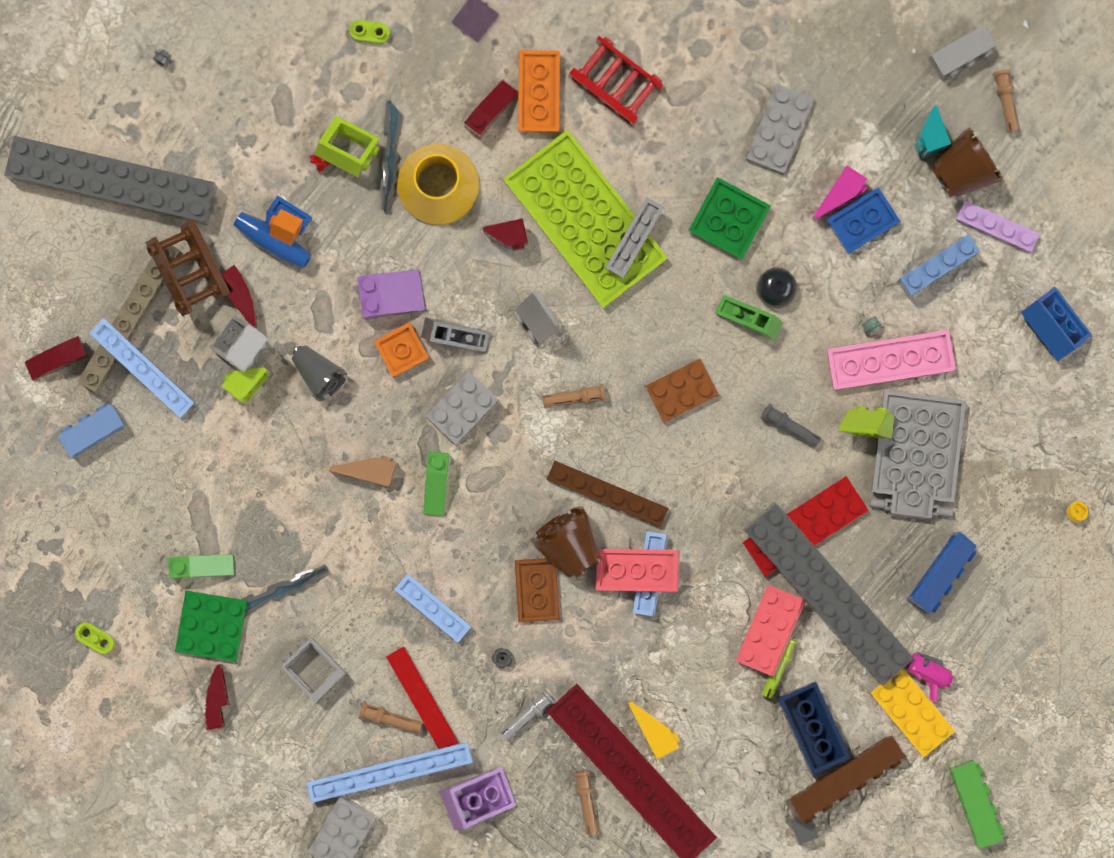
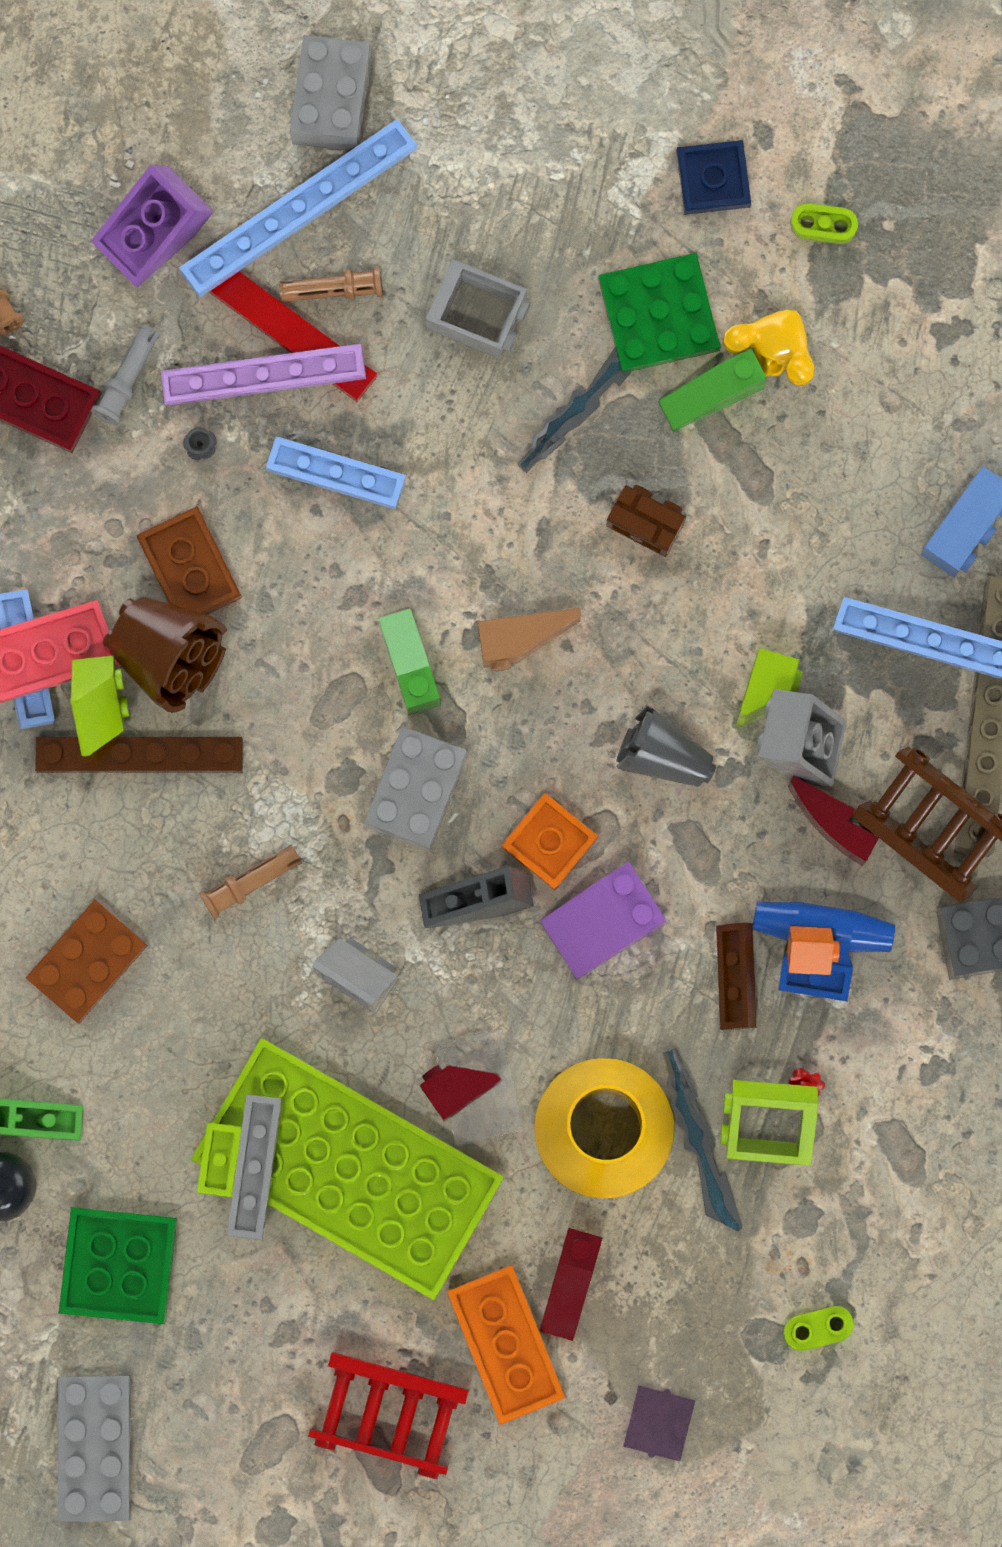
camera: 165 degrees right, 5 degrees down
(145, 693) = (713, 177): none -> dark blue tile
(153, 578) = (777, 343): none -> yellow head
(216, 698) = (602, 207): dark red slope -> none
(270, 507) = (646, 519): none -> reddish brown brick
(331, 234) = (736, 976): none -> reddish brown plate
(450, 682) = (263, 375): none -> lavender tile
(617, 528) = (97, 701): none -> lime slope
(651, 249) = (219, 1160): none -> lime plate

